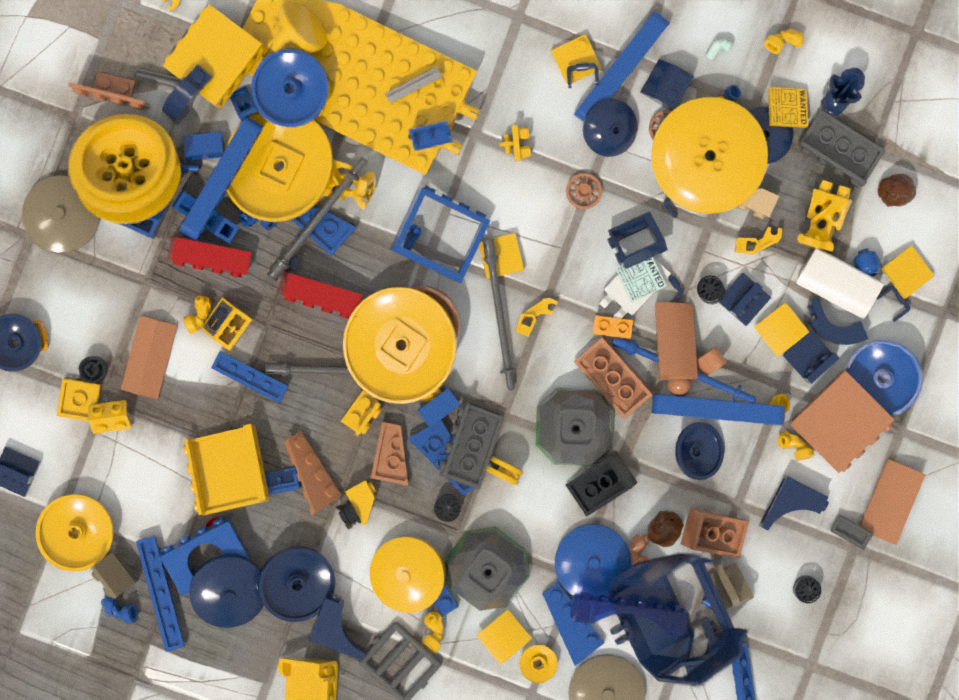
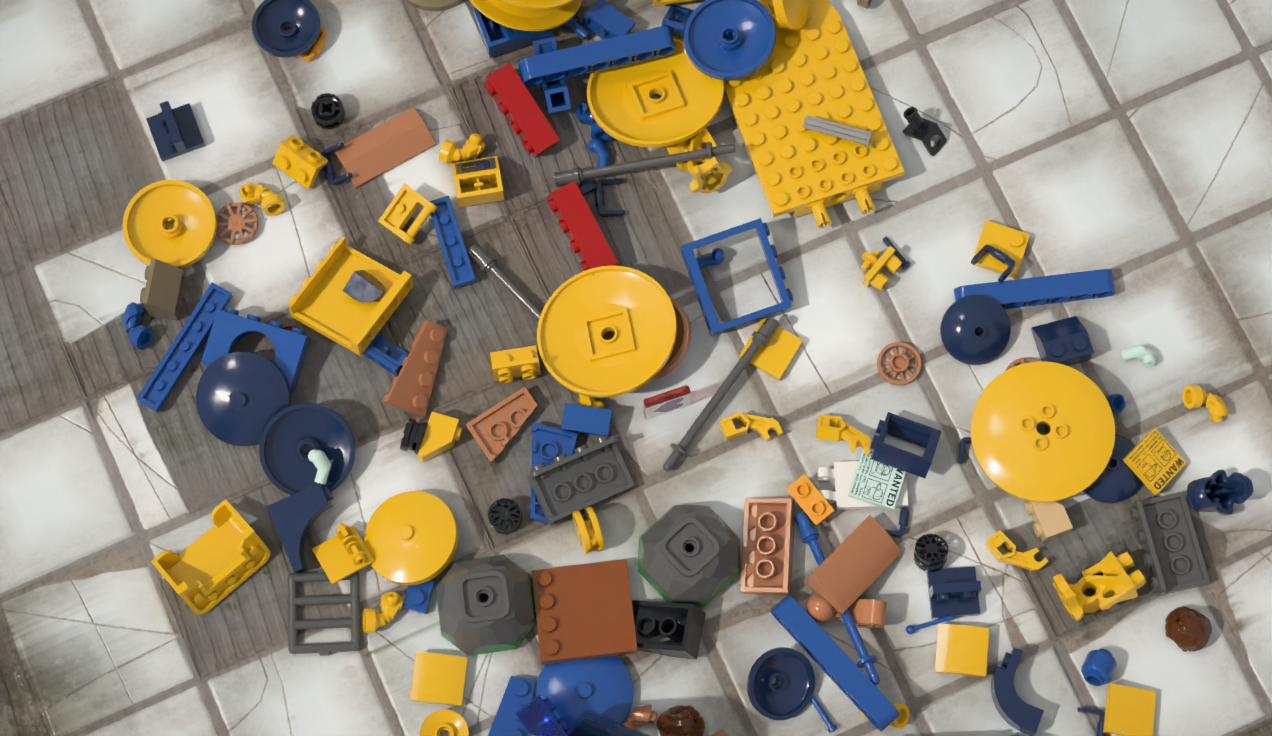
camera: 40 degrees right, 15 degrees down
(76, 397) = (289, 120): yellow tile -> none
(102, 463) = (270, 202): none -> yellow arm
(111, 490) = (236, 223): none -> nougat wheel
(131, 404) = (329, 171): none -> dark blue piece
(201, 387) = (402, 209): none -> yellow plate
(230, 457) = (364, 287): none -> brick
(283, 232) = (601, 150): none -> blue arm
(307, 261) = (599, 198): none -> dark blue piece
(314, 584) = (322, 463): none -> light aqua arm
(330, 231) = (642, 187): blue wing -> none
(378, 621) = (343, 554): none -> yellow hinge
(430, 136) = (811, 182): blue hinge -> none
(460, 29) = (923, 130): none -> black bracket
(475, 351) = (666, 402): none -> tile
(519, 123) = (905, 264): none -> dark blue piece
(547, 518) = (584, 612): none -> dark orange plate
(598, 264) = (835, 429): none -> yellow piece
(737, 442) = (823, 715): none -> blue piece
(740, 344) = (910, 629): none -> blue hinge
(810, 357) = (965, 701): dark blue bracket -> none
(839, 283) = (1056, 658): white slope -> none

